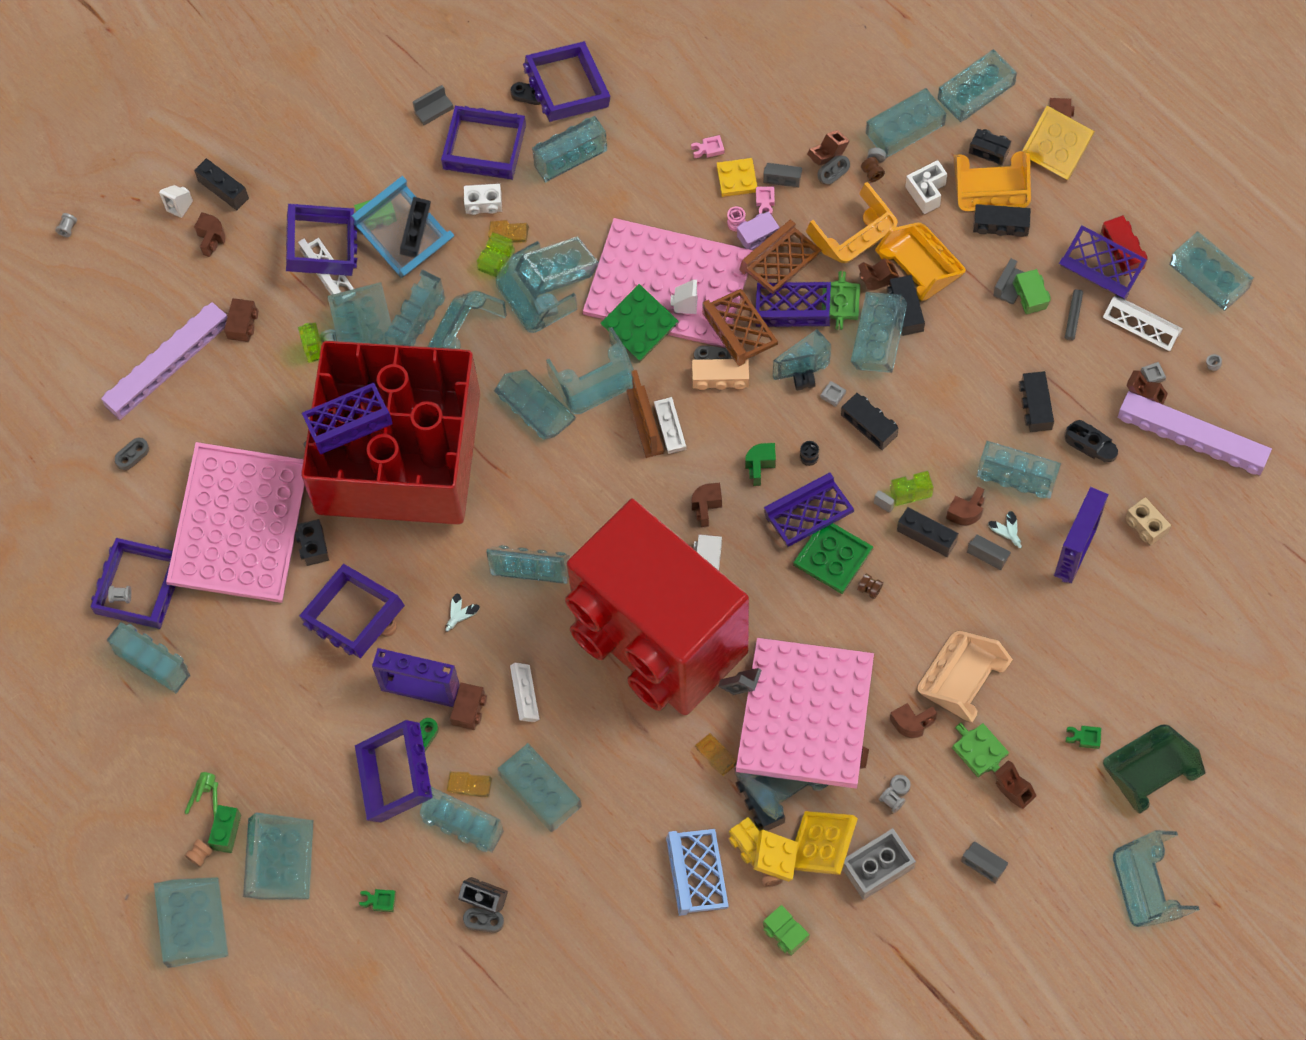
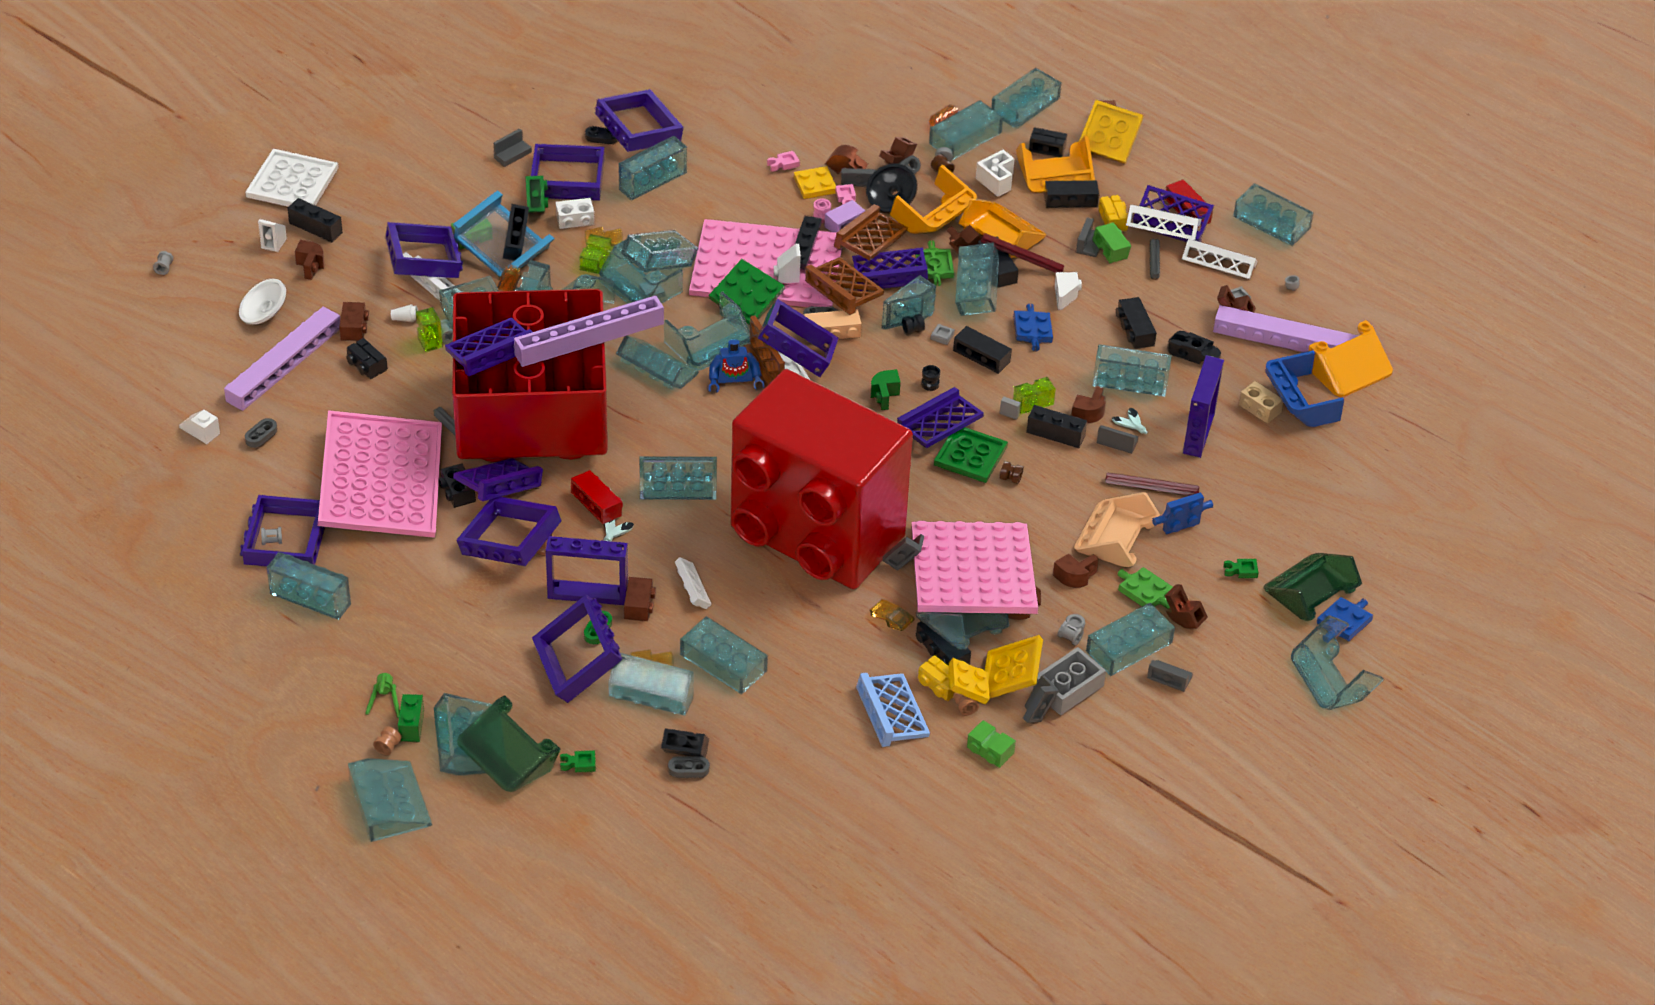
camera: 15 degrees left, 20 degrees down
(75, 439) = (202, 426): none -> white slope
(154, 289) = (262, 302): none -> white dish
(207, 126) = (290, 177): none -> white plate
(247, 369) = (366, 358): none -> black brick
(294, 314) = (405, 313): none -> white cone
(303, 886) = (506, 749): none -> clear green windscreen
(359, 551) = (500, 478): none -> dark purple fence
(399, 288) = (509, 278): none -> clear orange brick
(444, 174) = (535, 193): none -> green brick
(446, 573) = (596, 497): none -> red brick
(447, 413) = (588, 331): none -> lavender brick
(610, 419) = (733, 365): none -> blue torso
(690, 382) = (804, 328): none -> dark purple window
(711, 261) = (807, 238): none -> black plate
(772, 152) = (845, 157): none -> copper brick
(802, 198) = (887, 181): none -> black dish
(843, 887) = (1040, 700): none -> dark grey panel
(886, 101) = (943, 114): none -> clear orange head
(928, 394) = (1033, 326): none -> blue plate
(933, 301) = (1023, 254): none -> dark red axle
(951, 816) = (1130, 639): none -> clear light blue brick
(972, 348) = (1066, 288): none -> white slope
(1013, 615) = (1151, 484): none -> axle
(1035, 664) = (1183, 513): none -> blue plate
(1041, 251) = (1113, 210): none -> yellow brick
(1092, 266) = (1163, 215): none -> white fence
(1176, 493) = (1283, 376): none -> blue windscreen
(1179, 812) = (1350, 613): none -> blue plate
(1255, 482) = (1352, 363): none -> light orange windscreen

